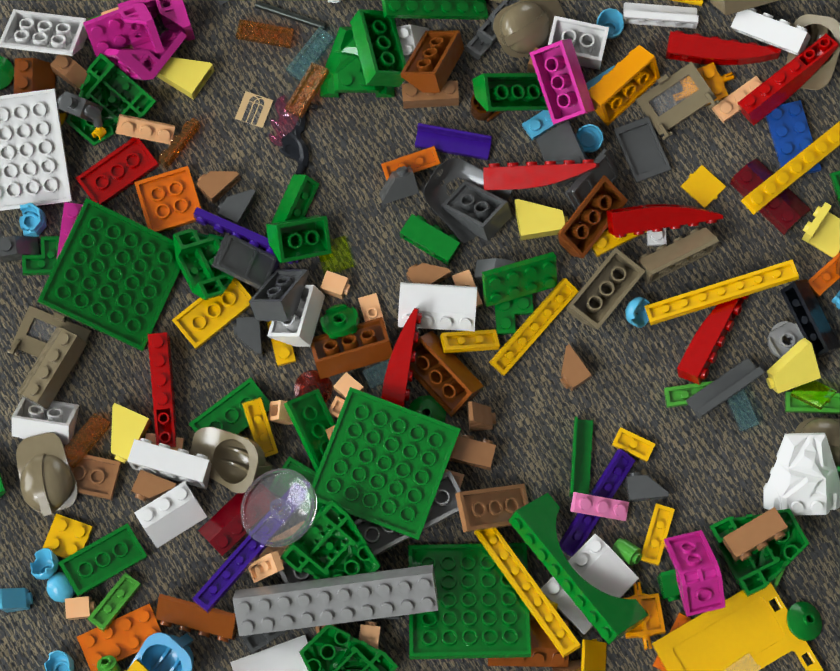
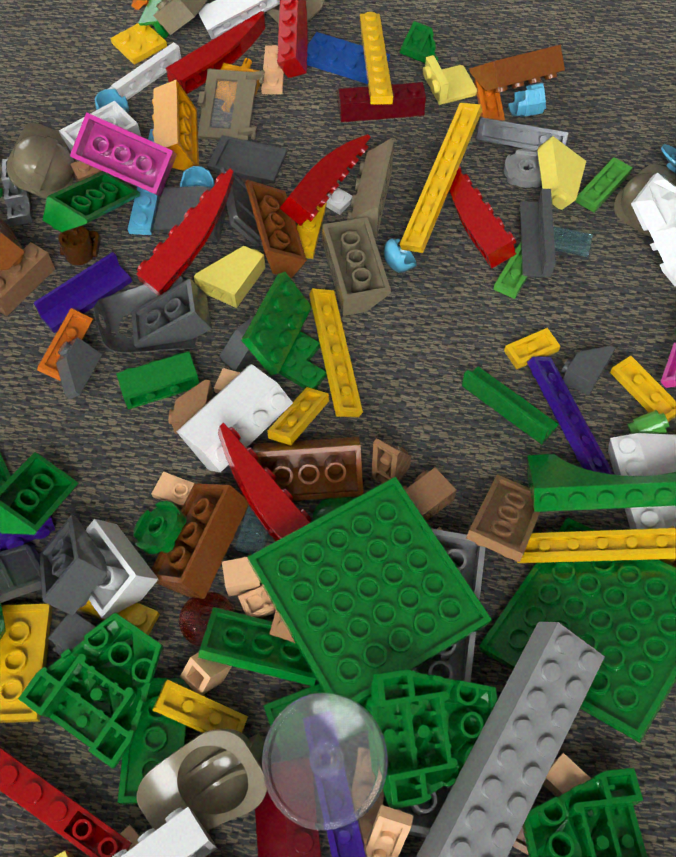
camera: 55 degrees left, 15 degrees down
(232, 366) = (99, 687): none -> green wedge
(335, 285) = (116, 504): light nougat brick -> none
(339, 258) = (91, 487): clear neon green piece -> none
(573, 370) = (409, 346): medium nougat slope -> none
(599, 506) = (579, 417): bright pink plate -> none
(703, 186) = (323, 139): yellow piece -> none
(814, 394) = (599, 175): clear neon green piece -> none

